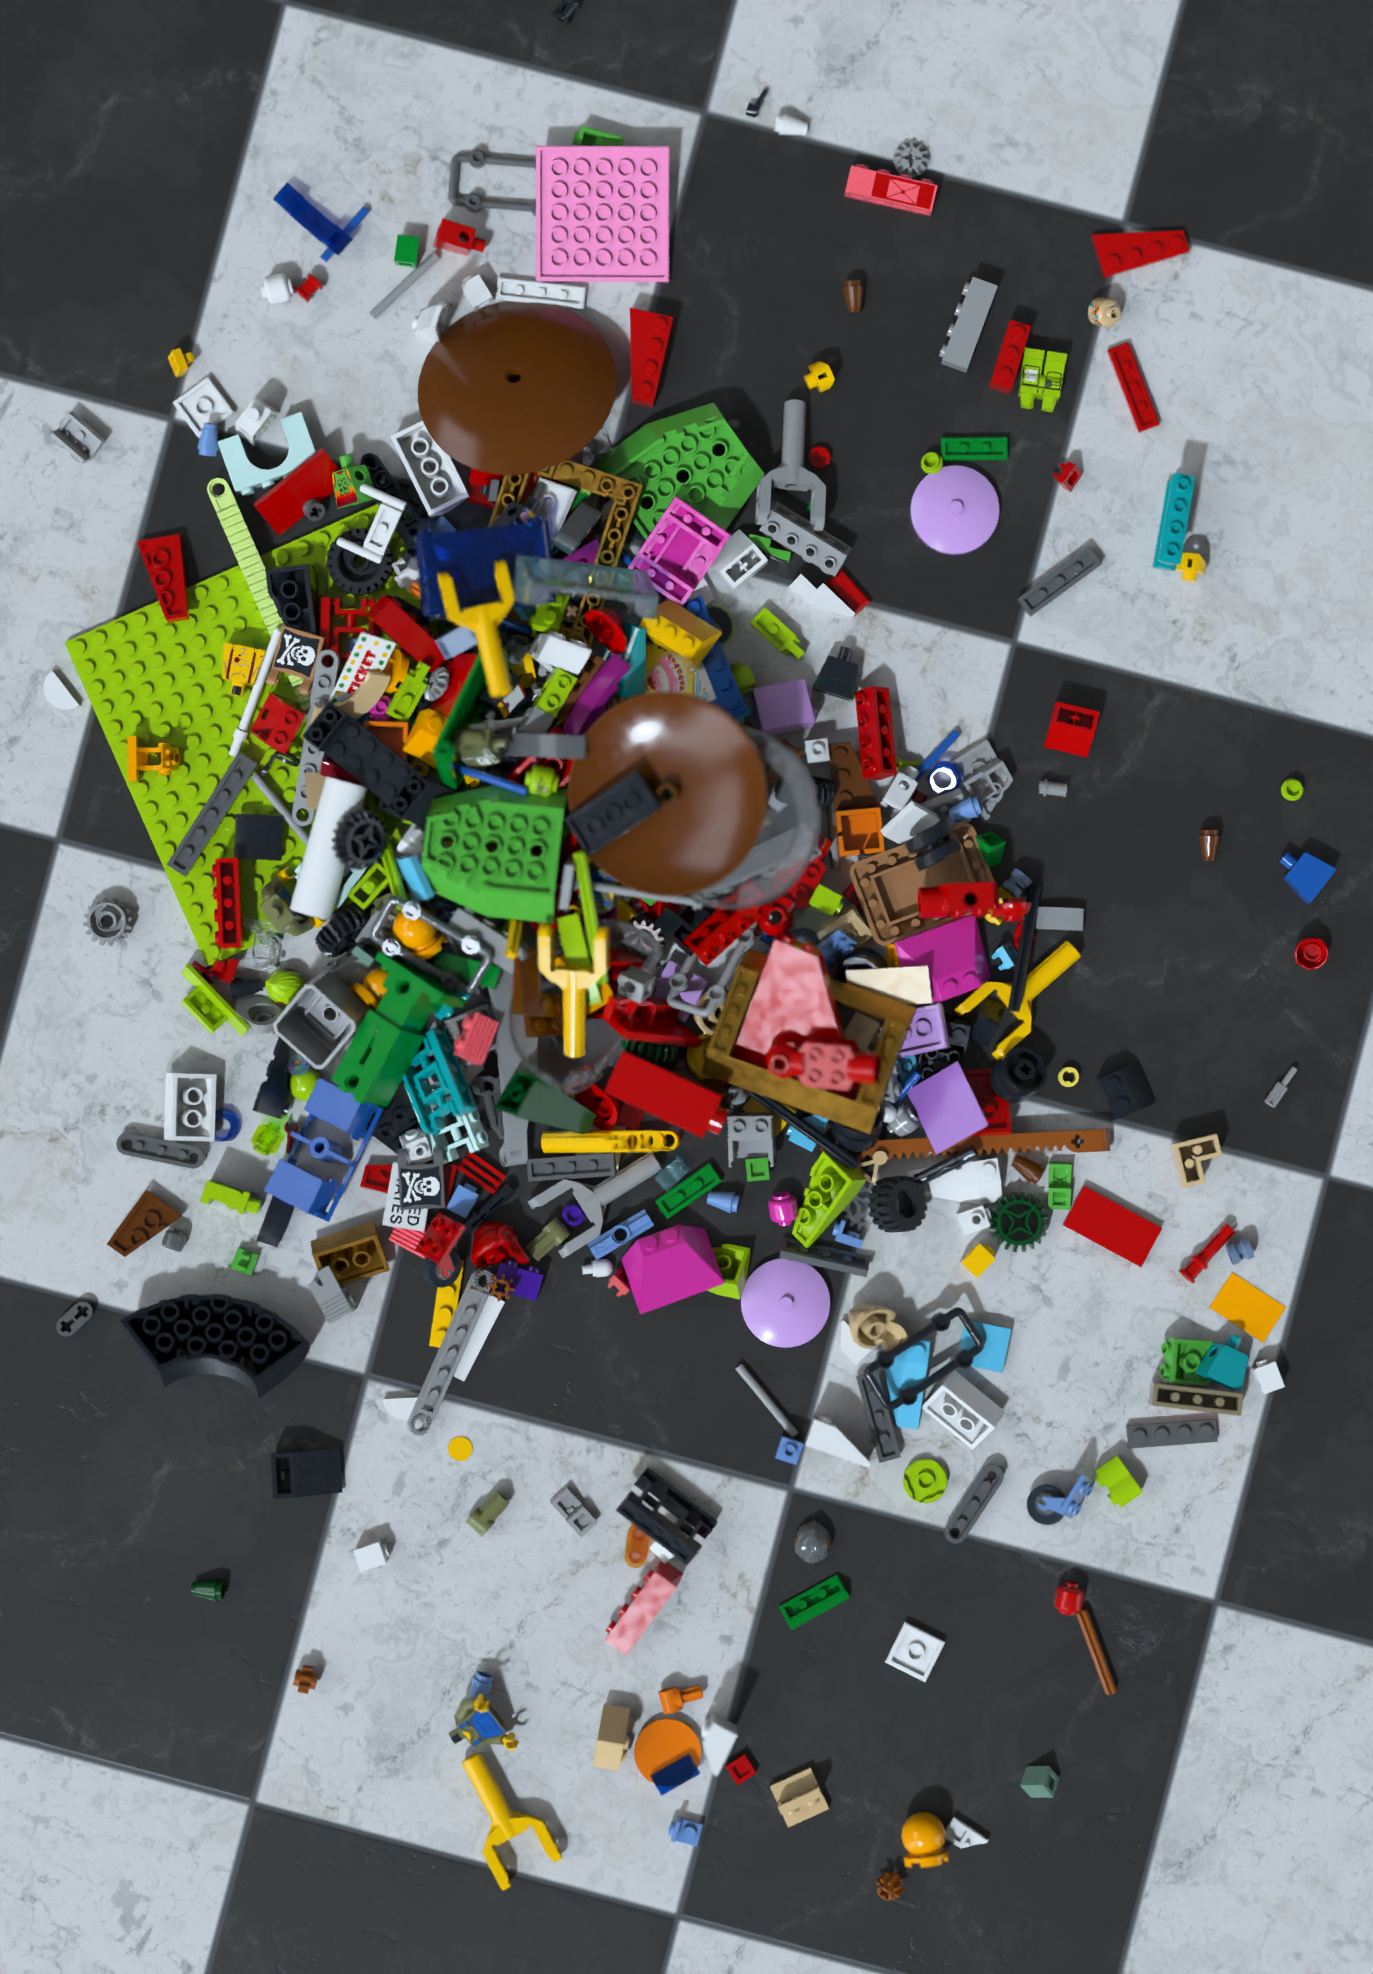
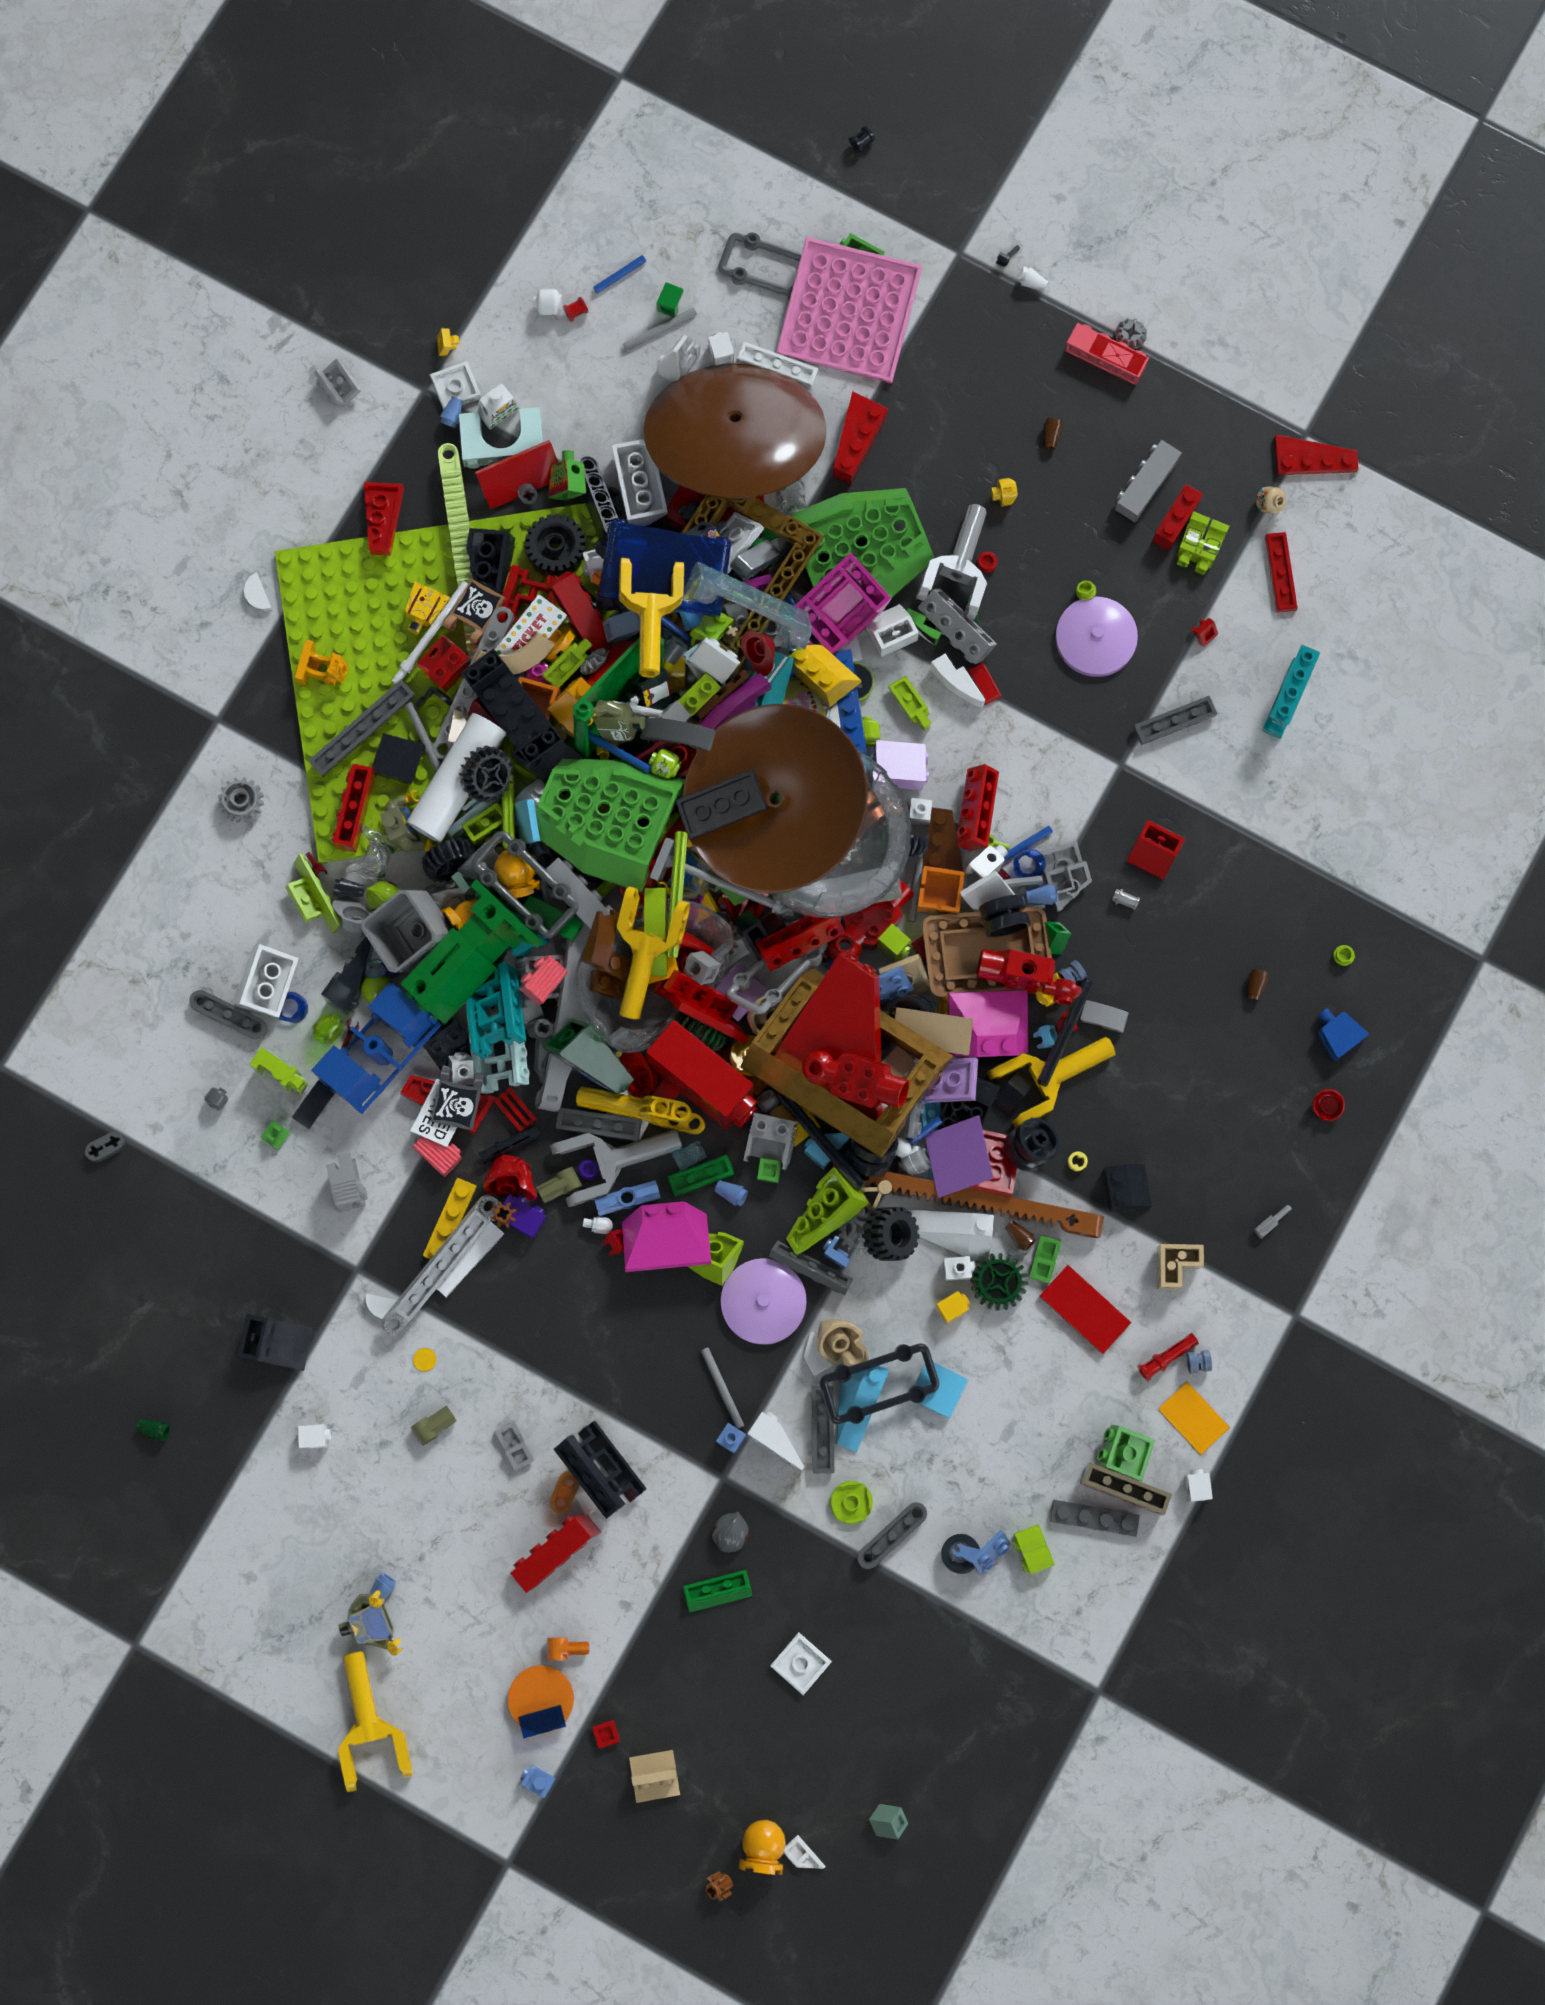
camera: 10 degrees right, 10 degrees down
(142, 1223) = (192, 1076): reddish brown wing -> none
(217, 1338) = (227, 1195): black brick -> none
(225, 969) = (334, 868): red tile -> none
(305, 1679) = (218, 1537): dark orange gear -> none
(312, 220) = (593, 254): clear blue slope -> none
(351, 1253) = (375, 1151): pearl gold slope -> none
(381, 529) = (582, 518): white plate -> none
(441, 1262) = (454, 1179): red plate -> none
(448, 238) = (716, 298): red torso -> none
(463, 1200) = (491, 1129): medium blue brick -> none
(514, 938) = (602, 896): yellow axle -> none
(612, 1738) = (491, 1669): tan brick -> none
(717, 1740) = (590, 1696): white slope -> none
(783, 1208) = (784, 1213): dark pink head -> none
(838, 676) = (955, 752): black torso -> none
(954, 1162) = (968, 1204): black pin -> none
(963, 1409) = (903, 1443): white slope -> none
(974, 448) = (1127, 589): green tile -> none
(1069, 1598) = (960, 1650): red head -> none
(1096, 1652) = (973, 1709): dark orange axle -> none
(1198, 566) = (1297, 738): yellow piece -> none
(1225, 1364) = (1160, 1464): teal torso -> none

